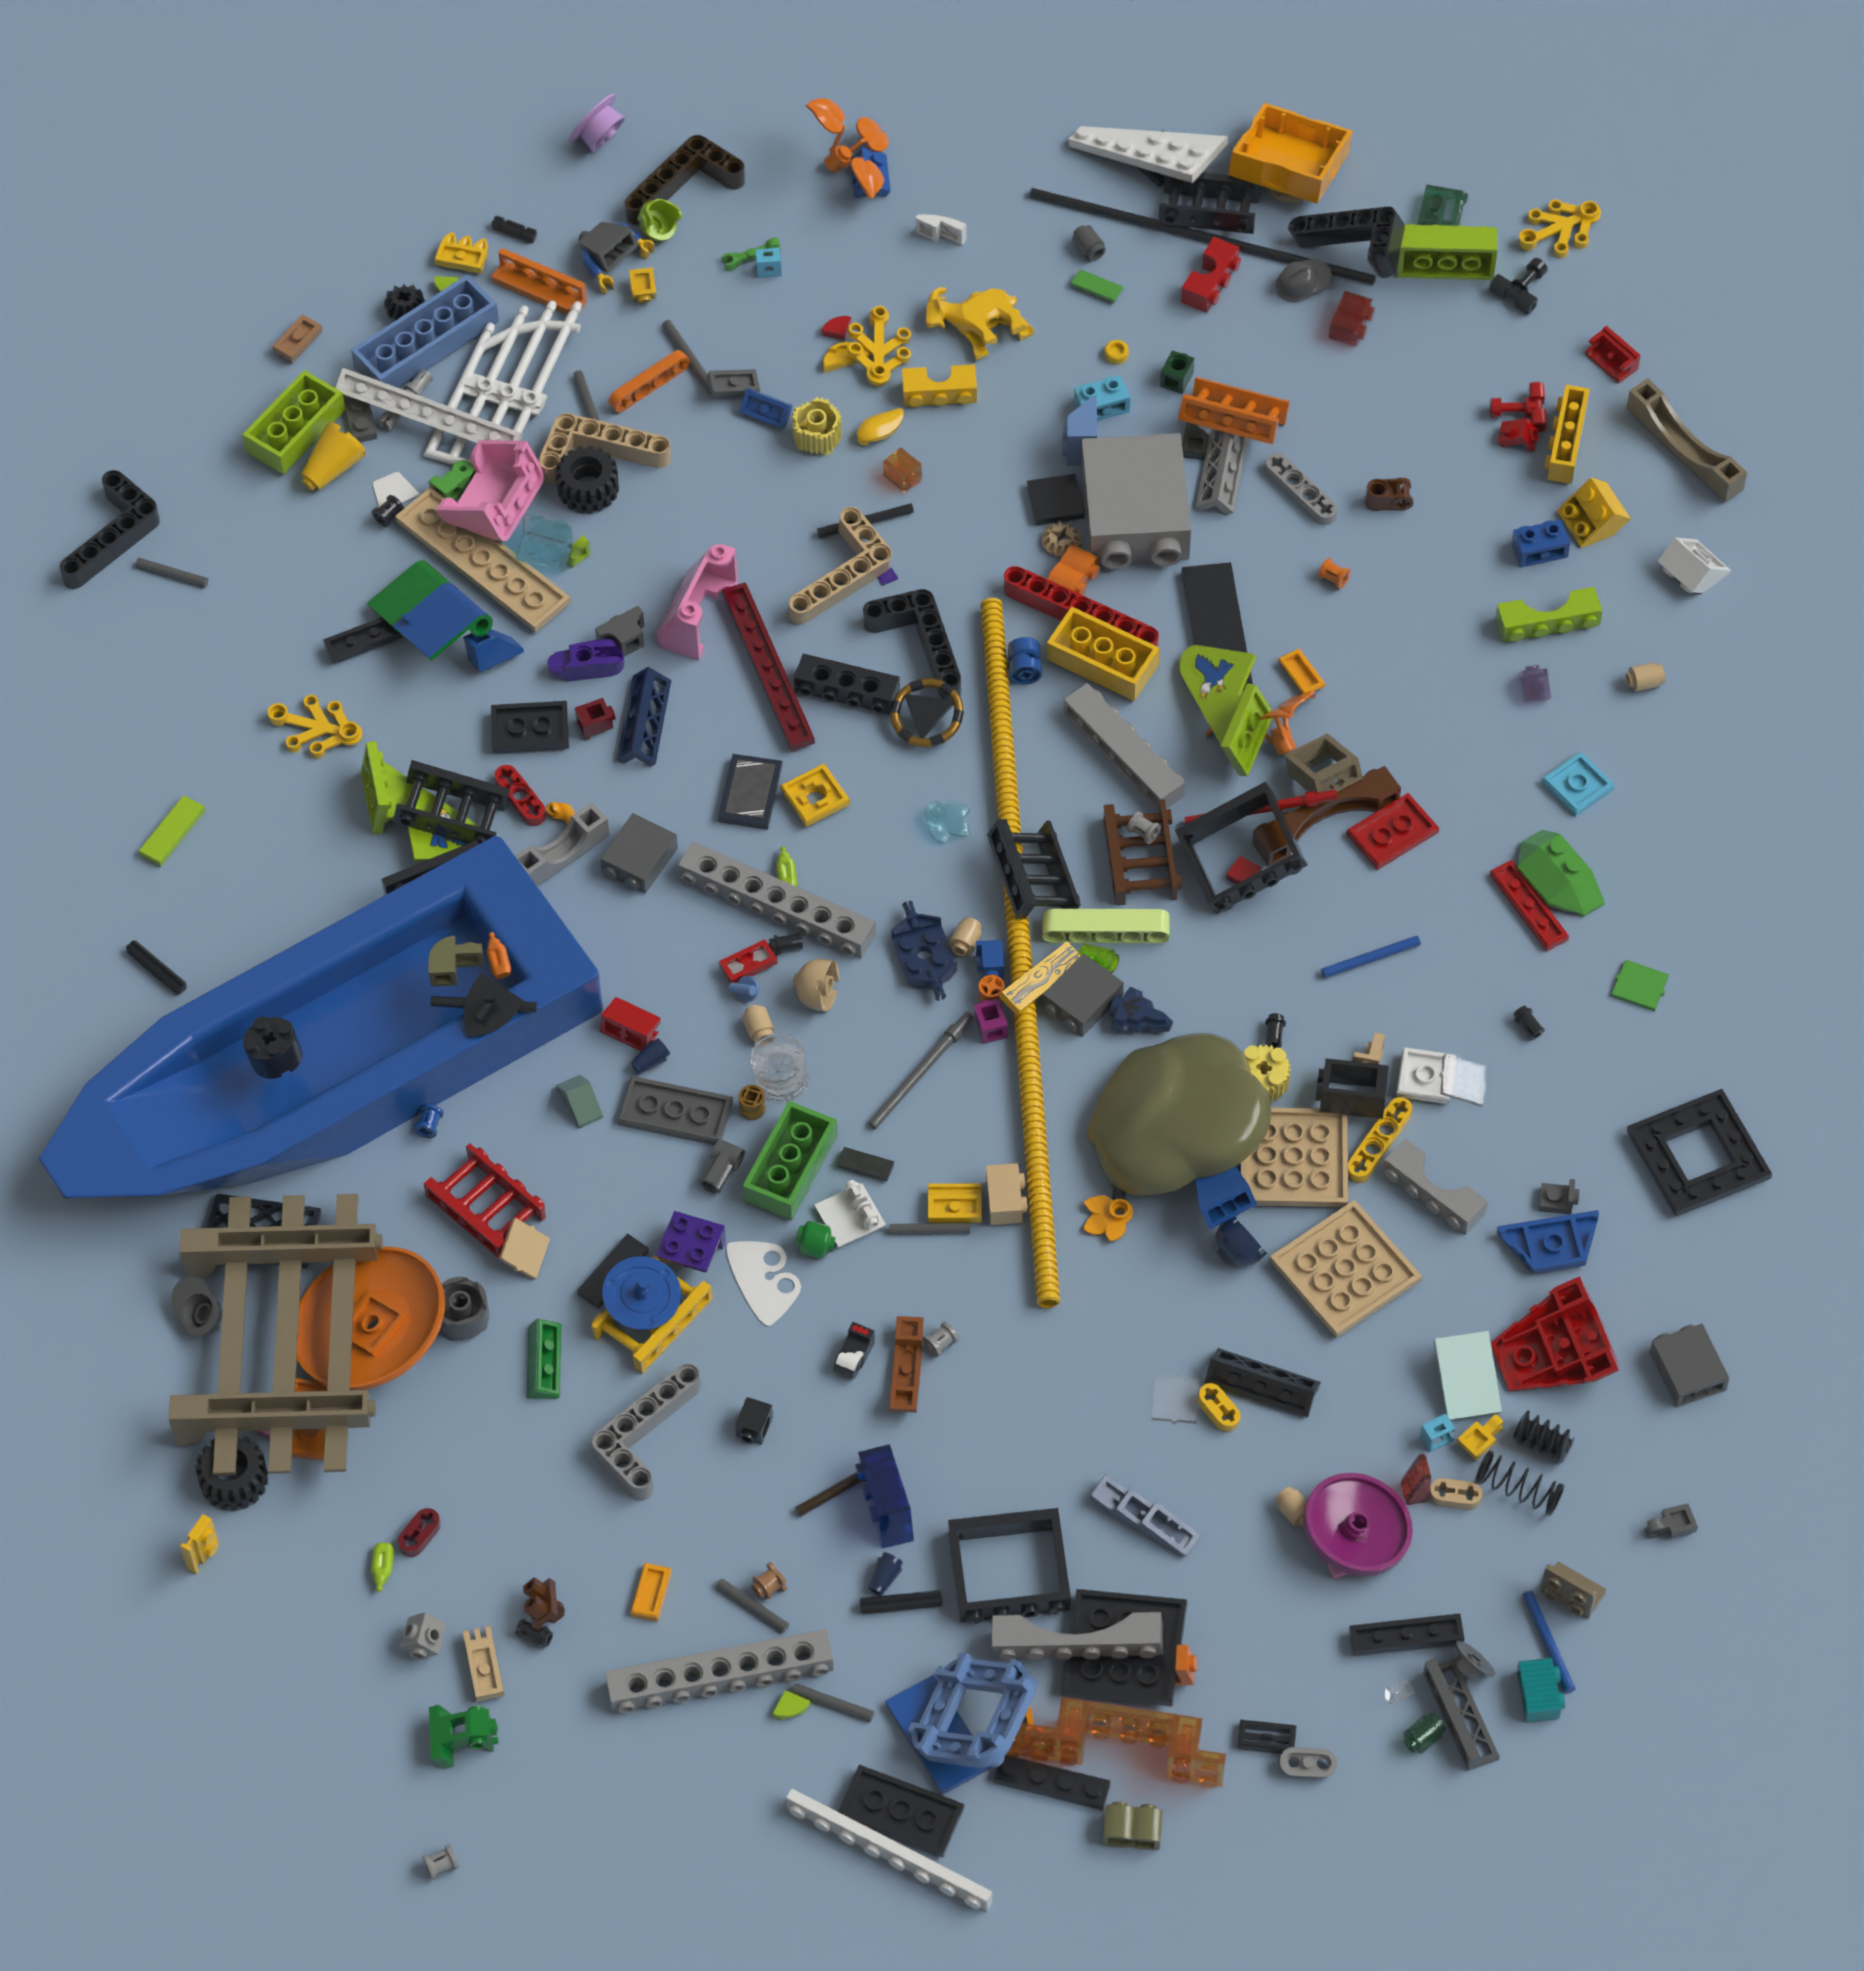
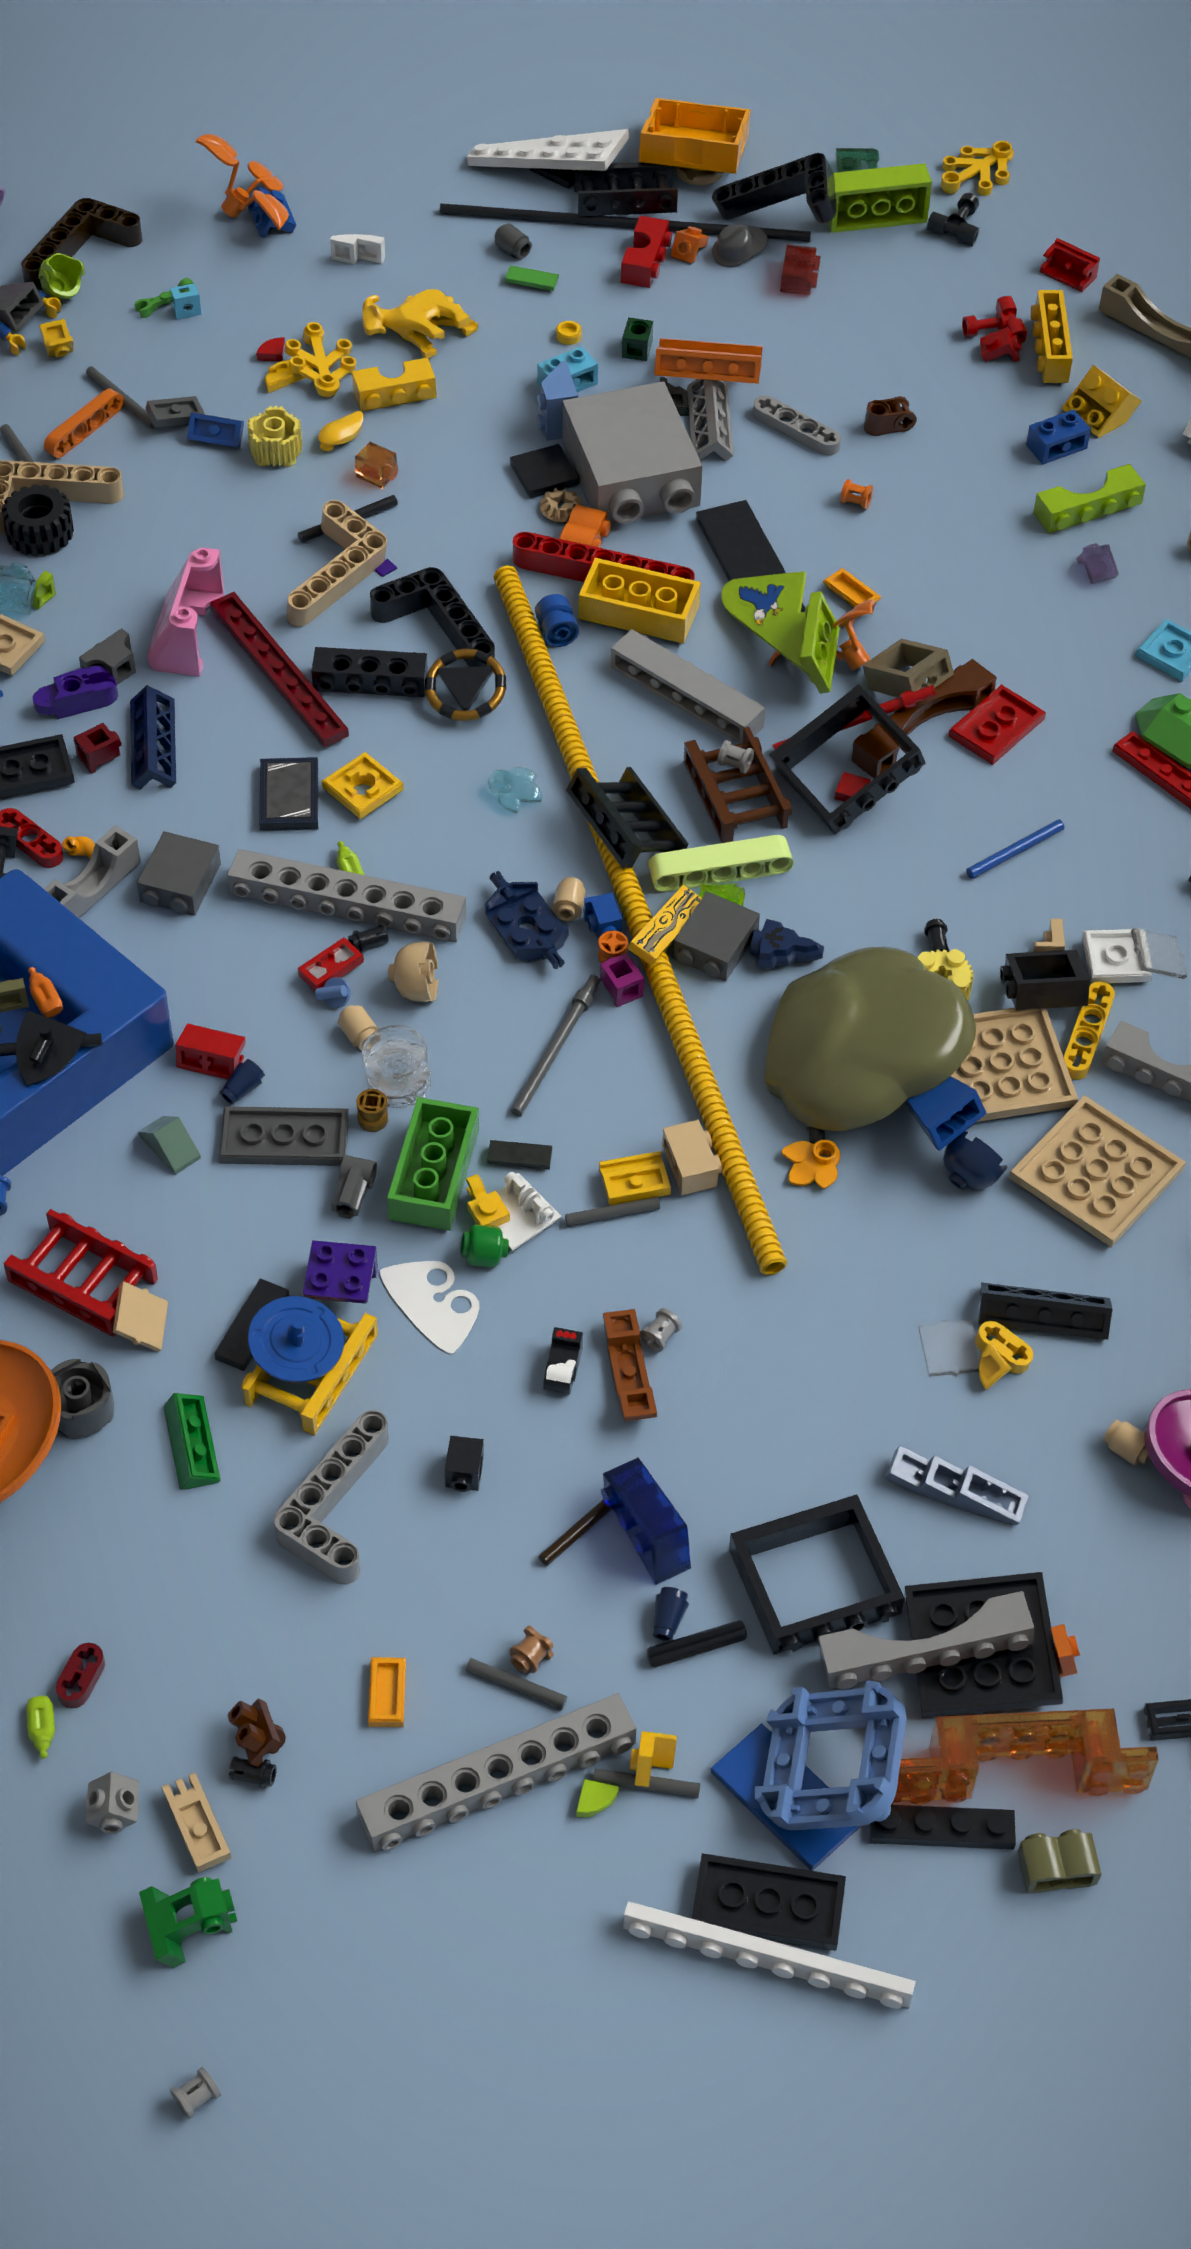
camera: 15 degrees left, 5 degrees down
(825, 1206) = (484, 1207): none -> yellow plate
(840, 1679) = (654, 1751): none -> yellow bracket
(1202, 1422) = (992, 1366): none -> yellow tile
(1254, 270) = (687, 244): none -> orange bracket

